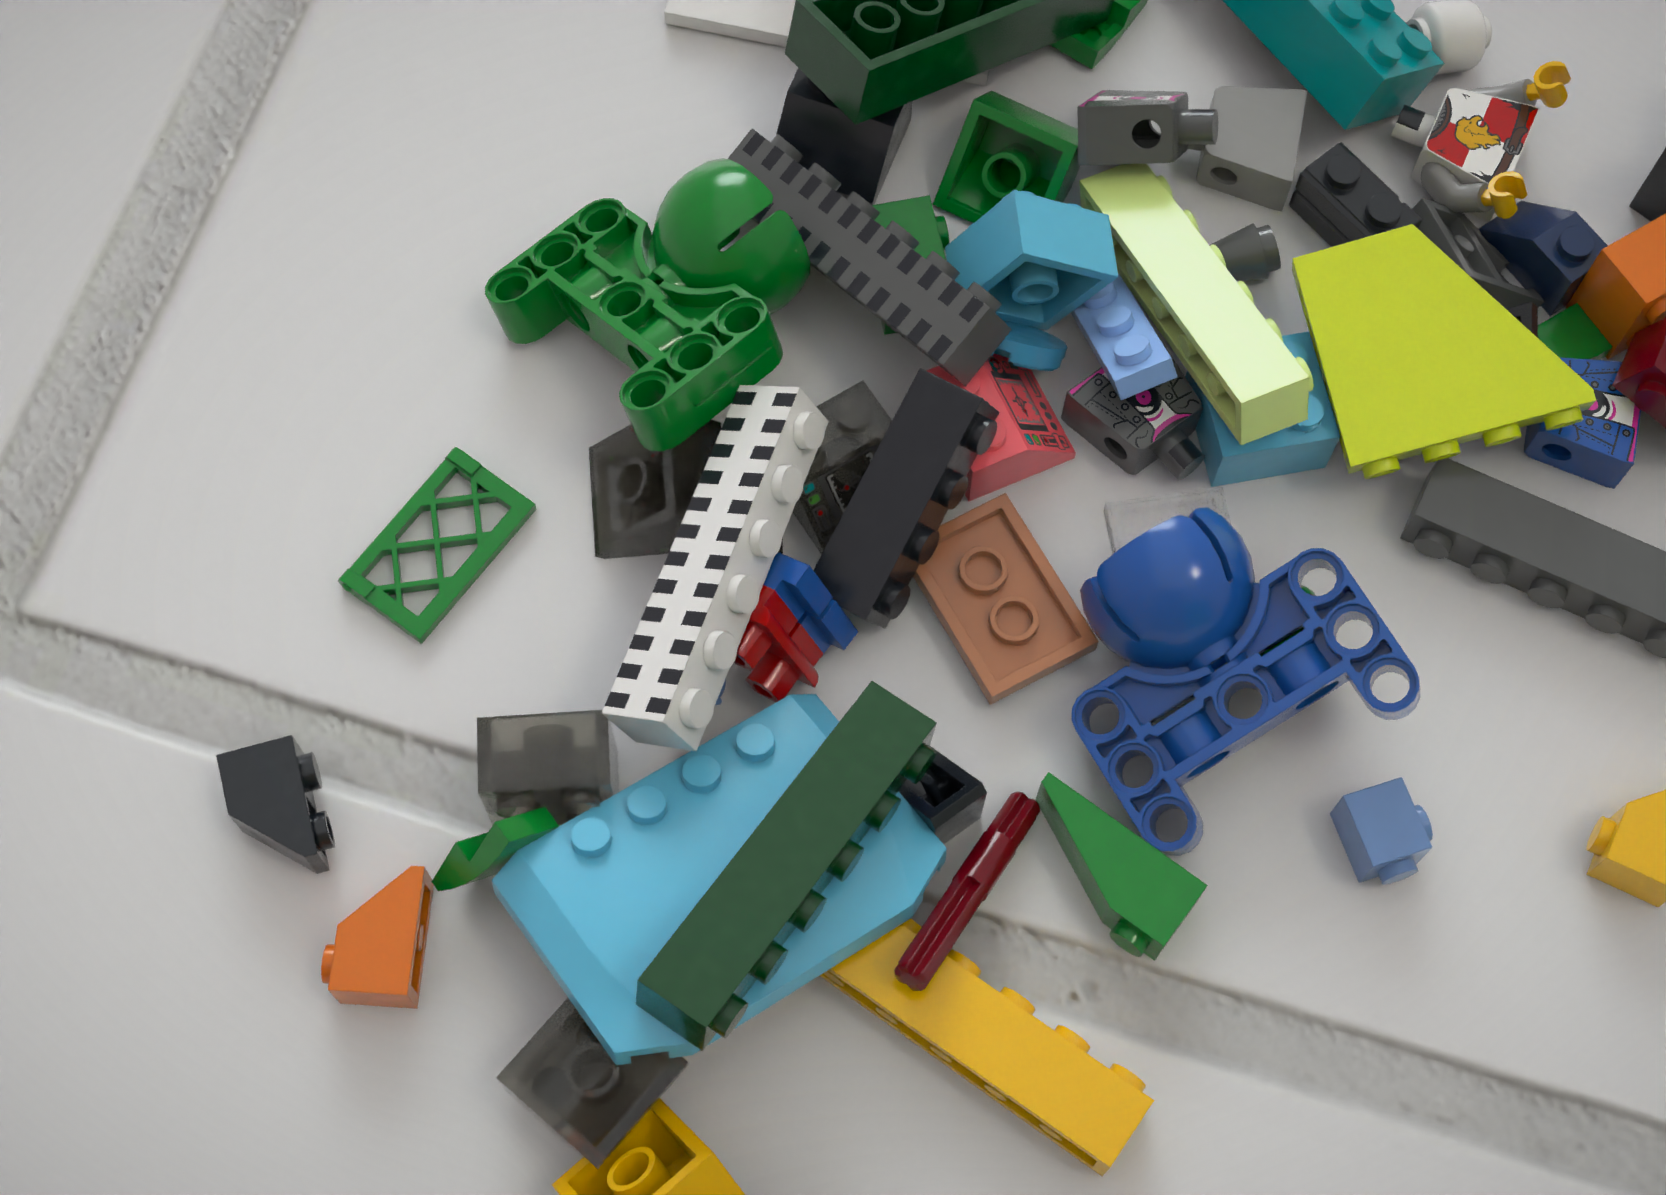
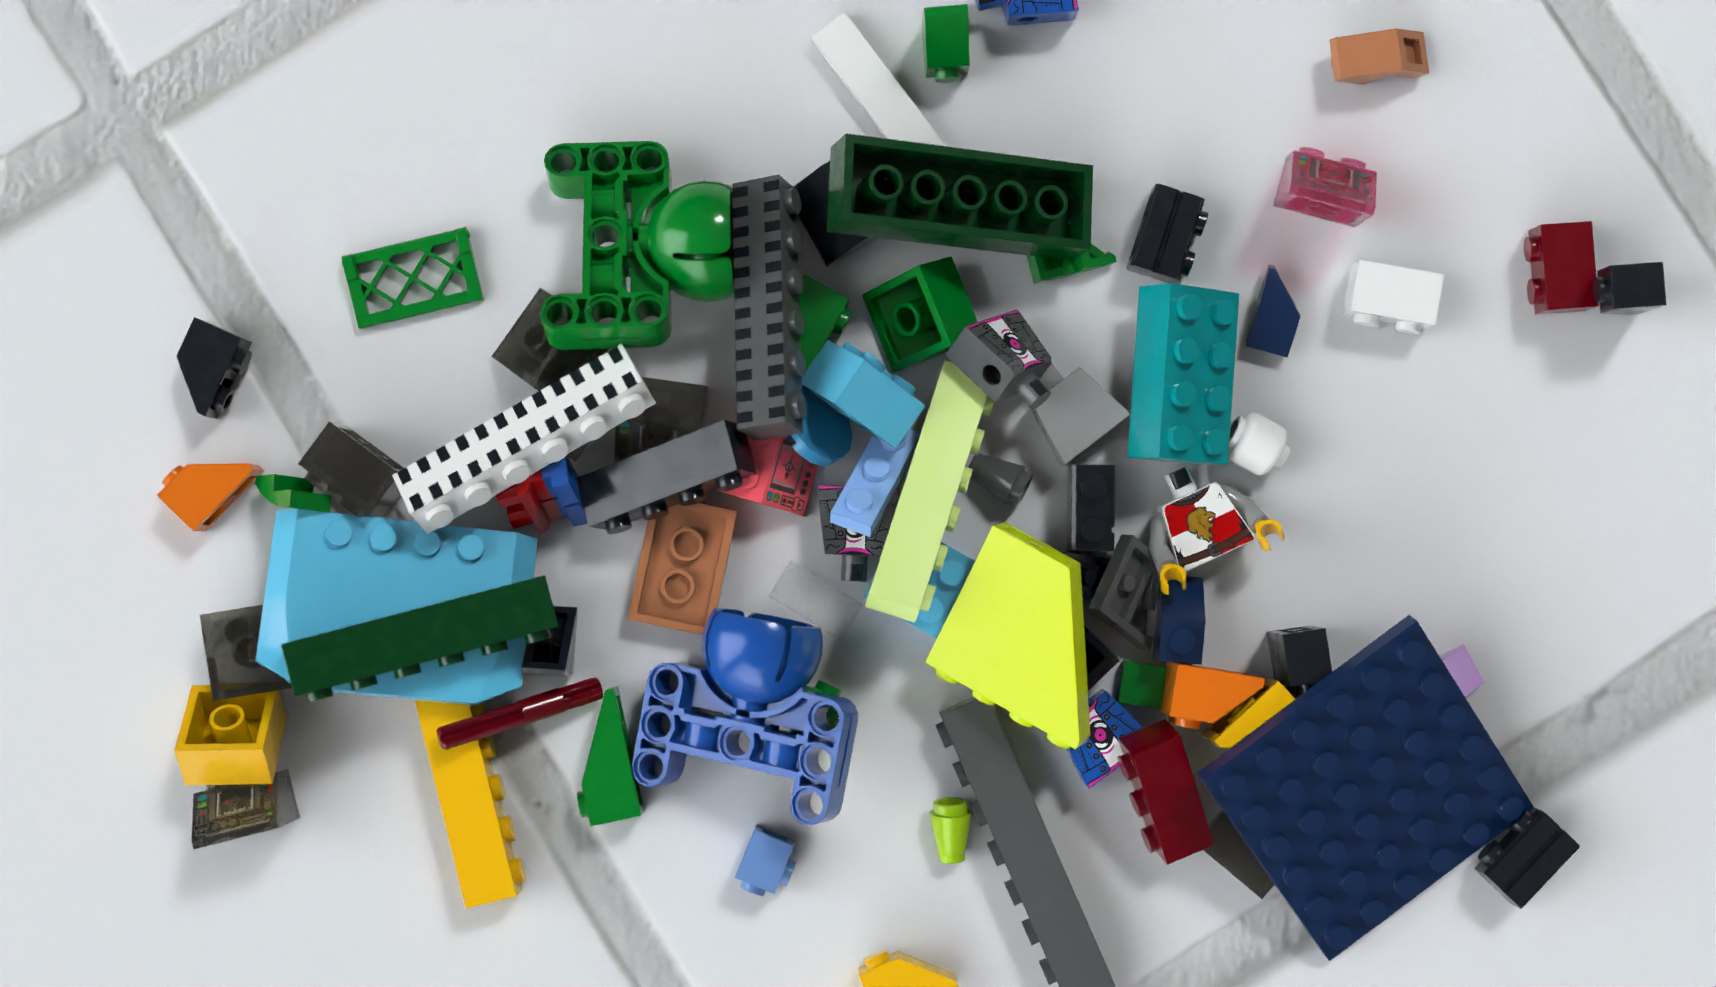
camera: 40 degrees right, 20 degrees up
(1535, 634) = (951, 828): none -> lime cone

